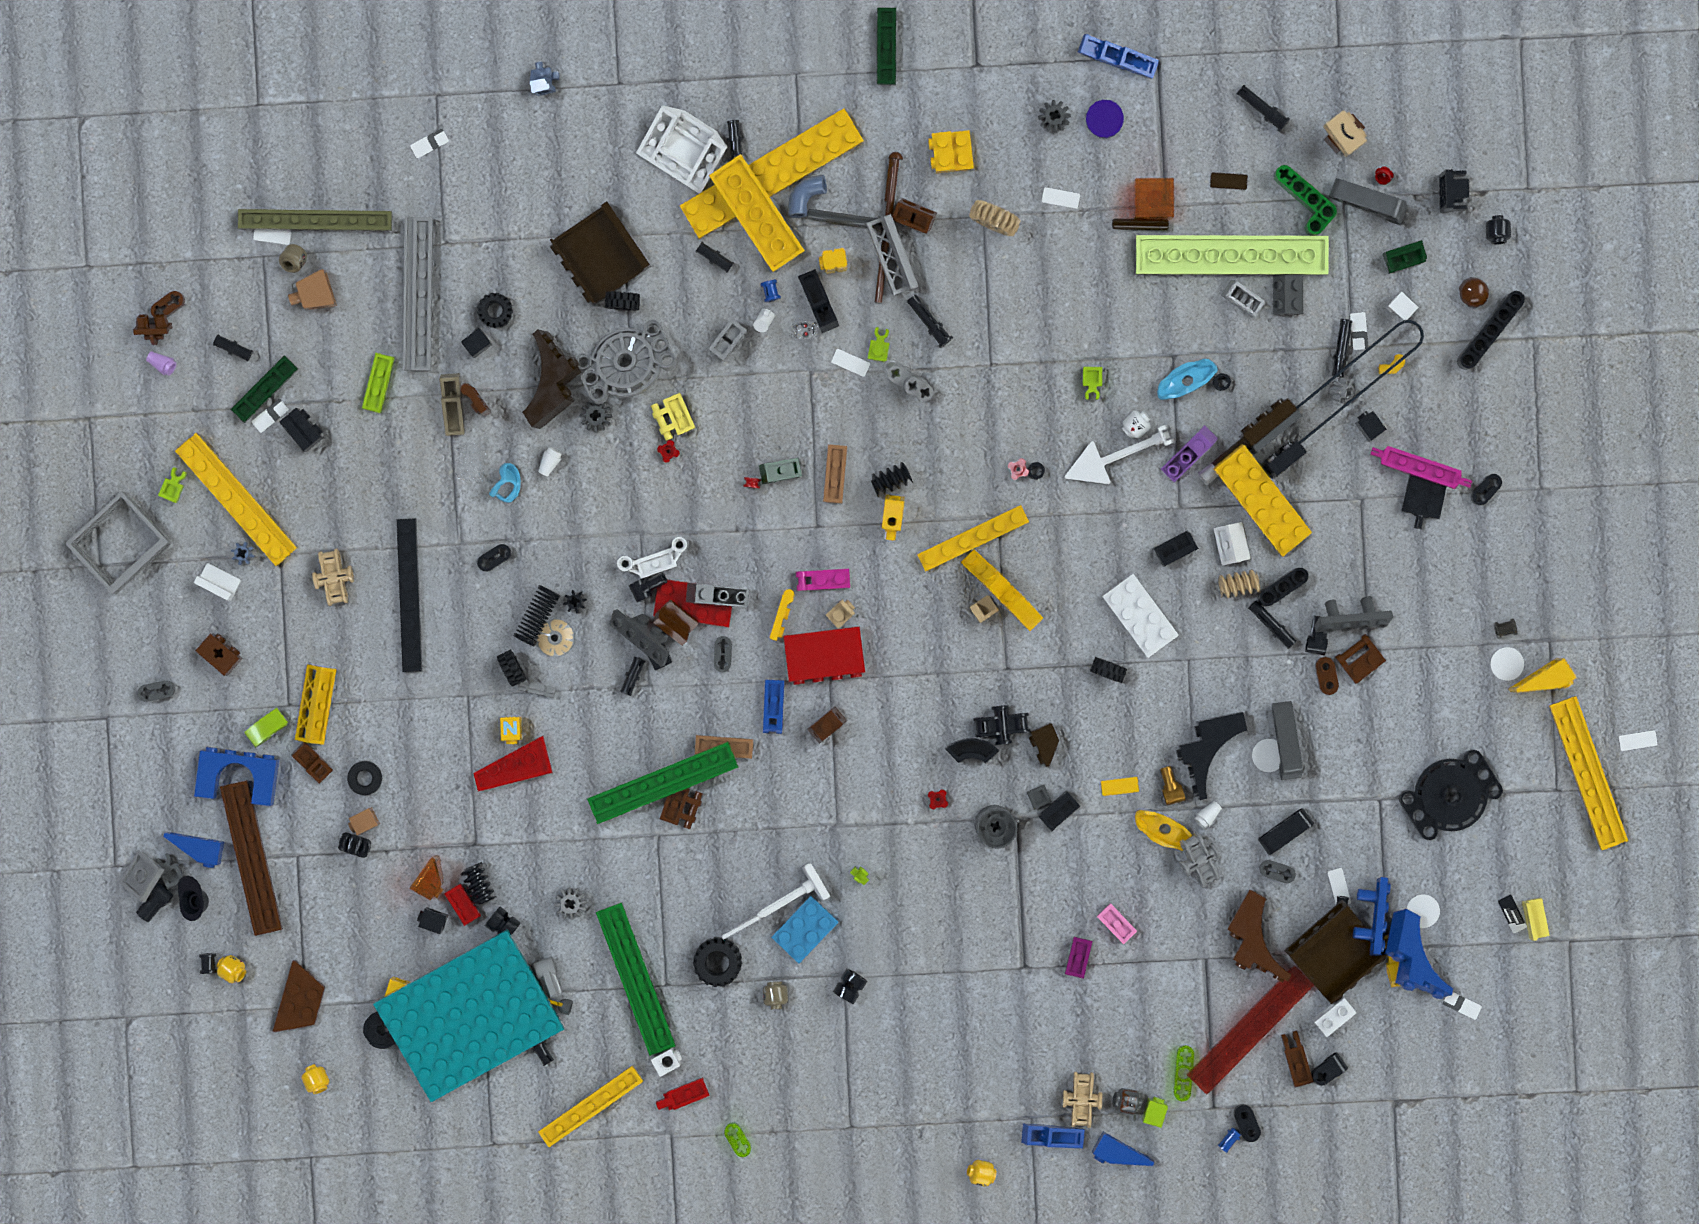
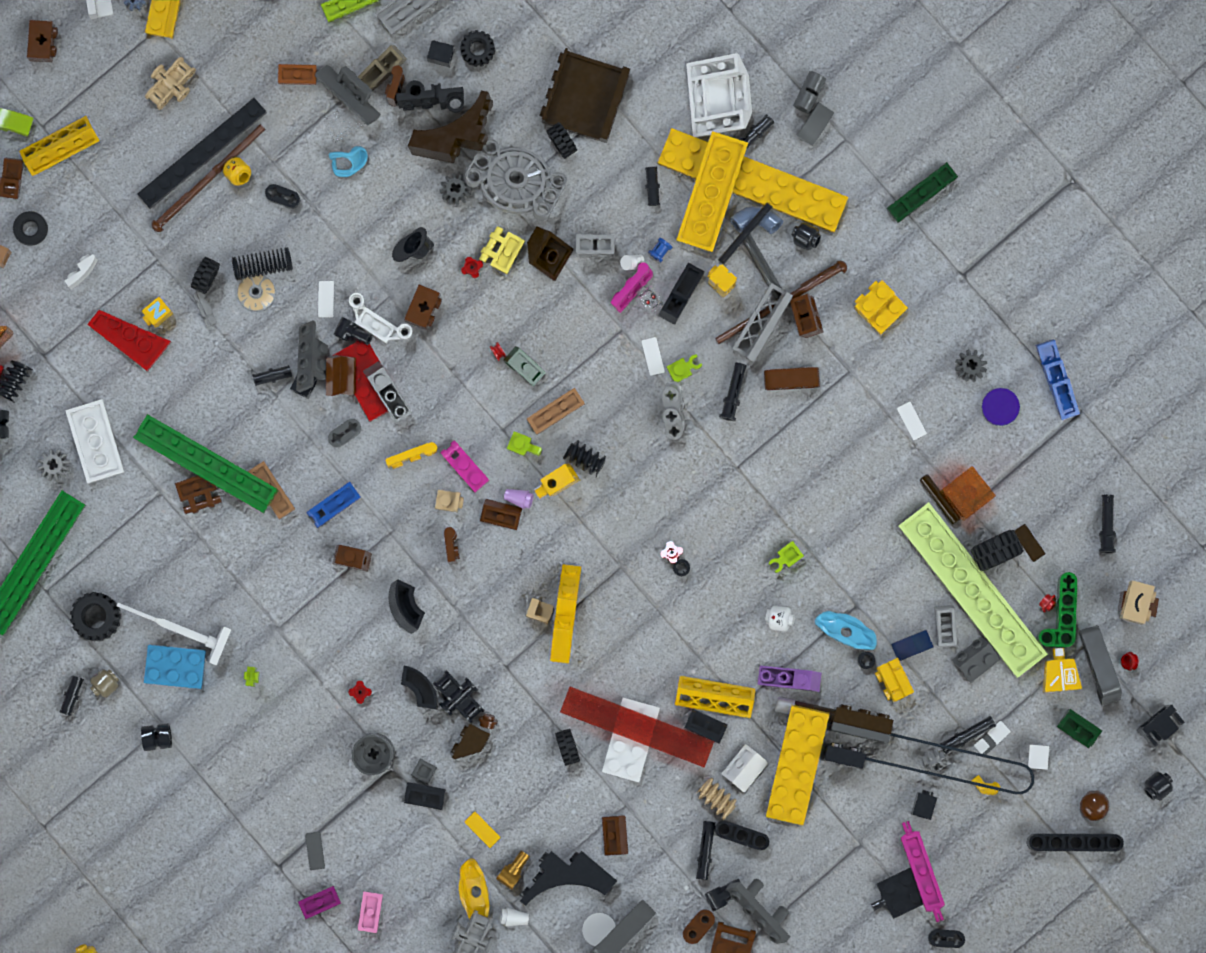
camera: 50 degrees right, 5 degrees down
(404, 470) = (297, 74): none -> dark orange plate
(430, 757) = (86, 265): none -> white slope
(441, 675) = (172, 211): none -> reddish brown bar
(446, 578) = (237, 171): none -> yellow head
(451, 438) = (350, 91): none -> dark grey bracket
(506, 383) = (431, 97): none -> black plate
(549, 461) = (394, 180): white cone -> none
(571, 606) = (296, 279): black gear -> none
(576, 856) = (95, 441): none -> white plate
(603, 586) = (326, 299): none -> white sticker
(615, 483) = (413, 245): none -> black piece
(661, 509) = (421, 297): none -> reddish brown brick
(703, 382) = (547, 252): none -> dark brown slope
(736, 72) = (809, 92): none -> dark grey pin
(764, 1027) = (71, 695): none -> black pin
(765, 87) = (815, 123): none -> dark grey slope
(786, 350) = (632, 285): none -> dark pink plate
(810, 212) = (745, 233): none -> black bar
(824, 655) = (405, 513): red panel -> none
(839, 521) = (521, 445): none -> lime plate
(849, 166) = (806, 236): none -> black head
(882, 555) = (519, 497): none -> lavender cone
(883, 580) = (501, 514): none -> reddish brown slope
(884, 641) = (451, 550): none -> reddish brown plate
(898, 713) = (404, 607): none -> black brick
(954, 266) = (791, 378): none -> reddish brown beam
(973, 538) = (589, 559): yellow plate -> none
(994, 218) = (854, 379): tan gear -> none
(1035, 930) = (315, 851): none -> dark grey sticker
(1039, 716) = (488, 721): none -> reddish brown plate
(1091, 466) = (719, 608): white piece -> none
(1135, 603) = (637, 727): none -> clear red plate
(1156, 520) = (715, 693): none -> yellow fence
(1205, 686) = (615, 835): none -> reddish brown slope
(1217, 211) = (997, 550): none -> black tyre
(1238, 337) = (912, 645): none -> dark blue slope
(1254, 372) = (894, 680): none -> yellow brick
(1288, 203) = (1048, 603): none -> red plate
(1351, 237) = (1060, 673): none -> yellow torso

